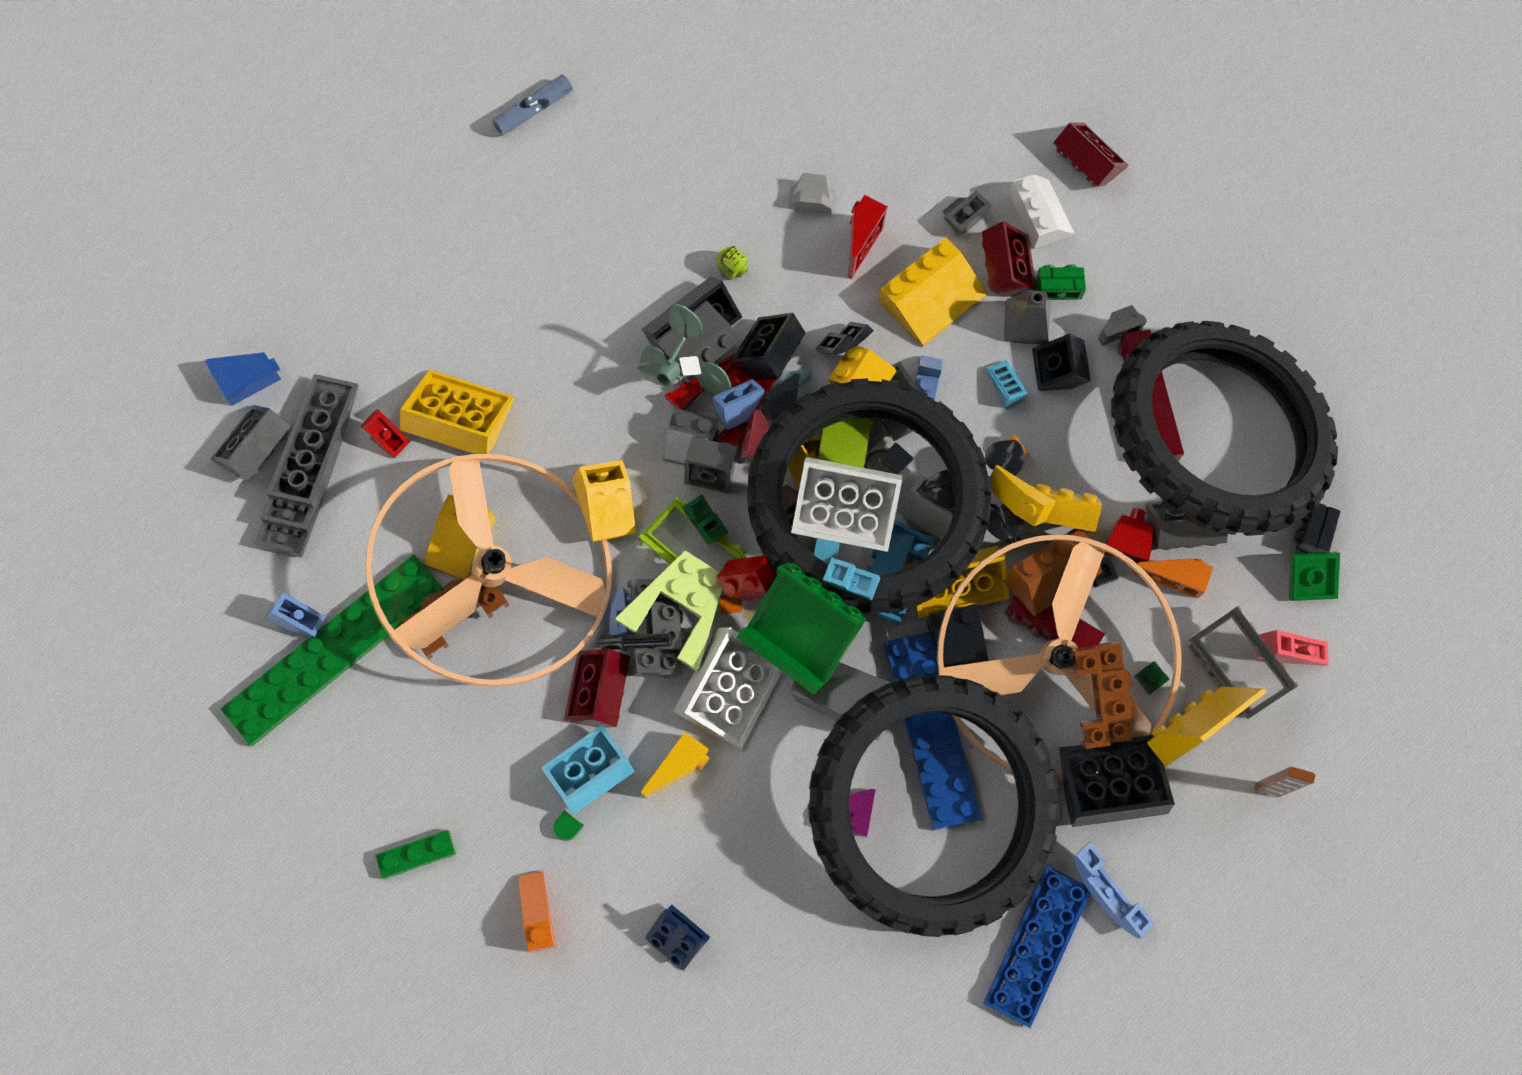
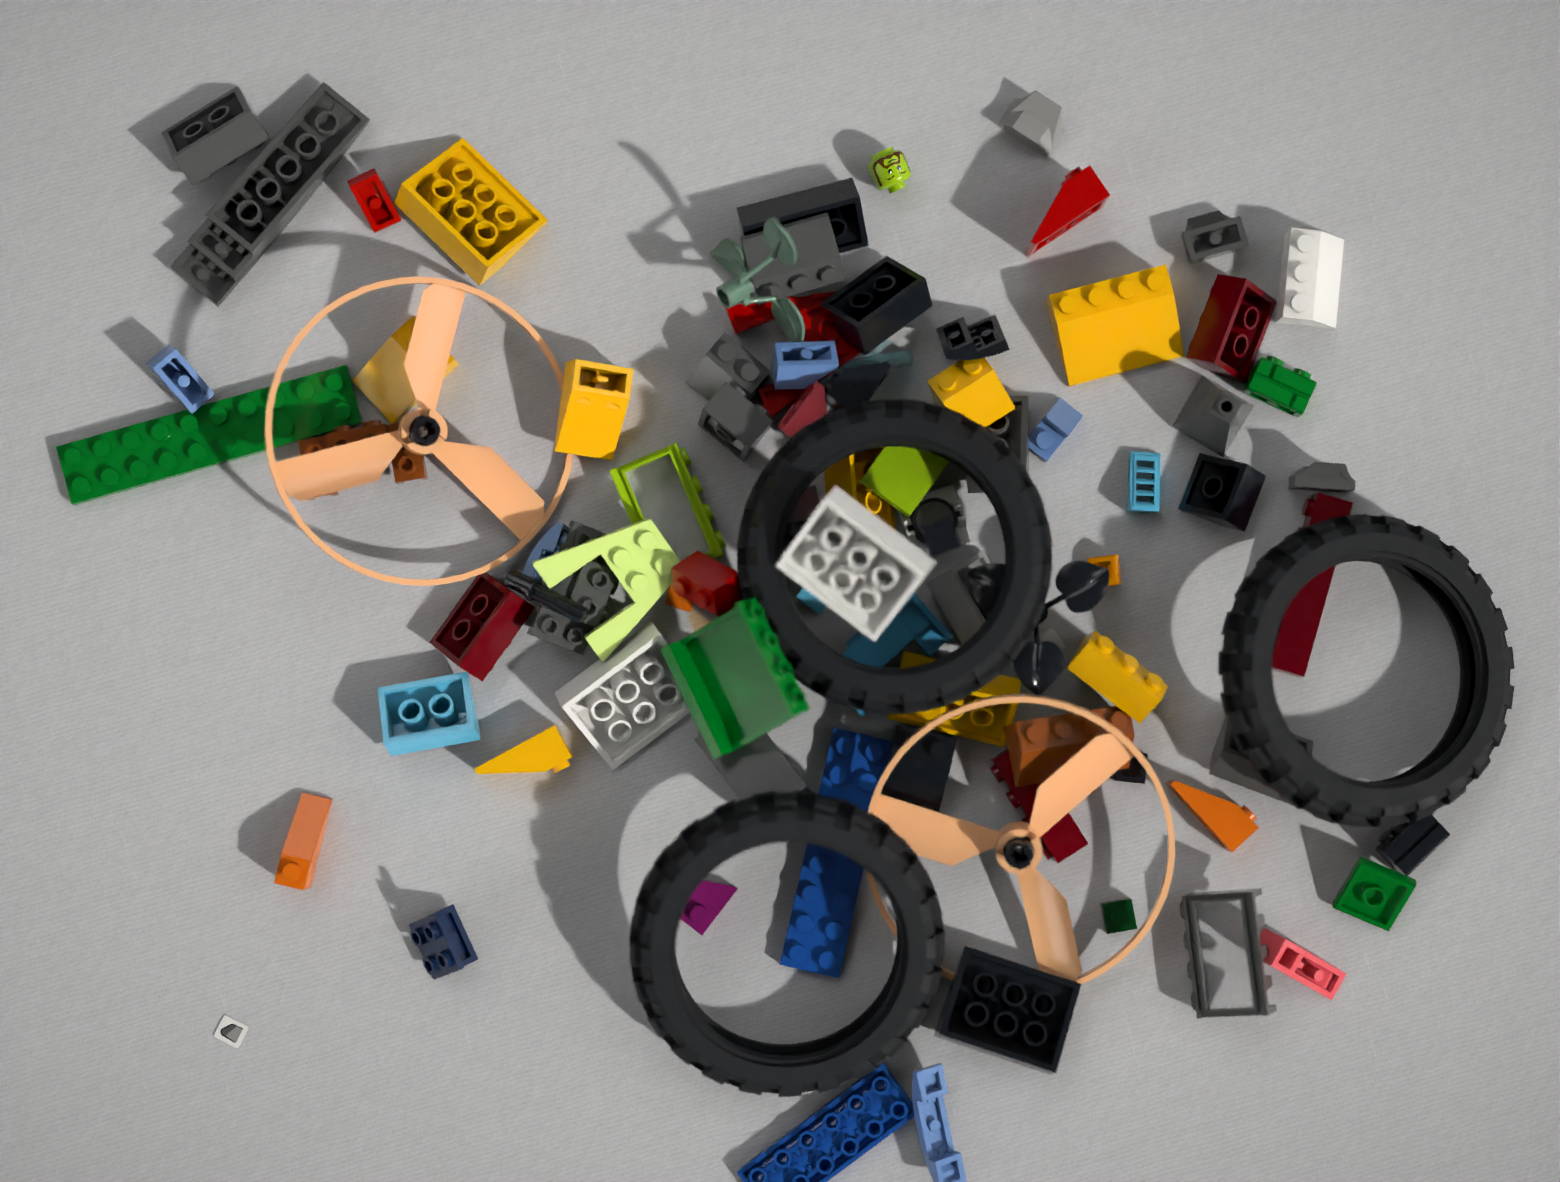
camera: 25 degrees right, 15 degrees up
(243, 374) = (239, 44): blue slope -> none
(415, 854) = (202, 714): green plate -> none
(567, 827) = (379, 764): green tile -> none
(690, 365) = (765, 293): white sticker -> none
(705, 520) = (694, 489): dark green slope -> none
(851, 579) = (816, 654): medium azure slope -> none
(1020, 497) = (1069, 644): yellow slope -> none
(1089, 154) = (1414, 230): dark red slope -> none
(1110, 693) = (1050, 921): dark orange bracket -> none
(1132, 536) = (1184, 744): red torso -> none
(1201, 721) = (1138, 999): yellow slope -> none
(1285, 782) = (1189, 1112): dark orange tile -> none

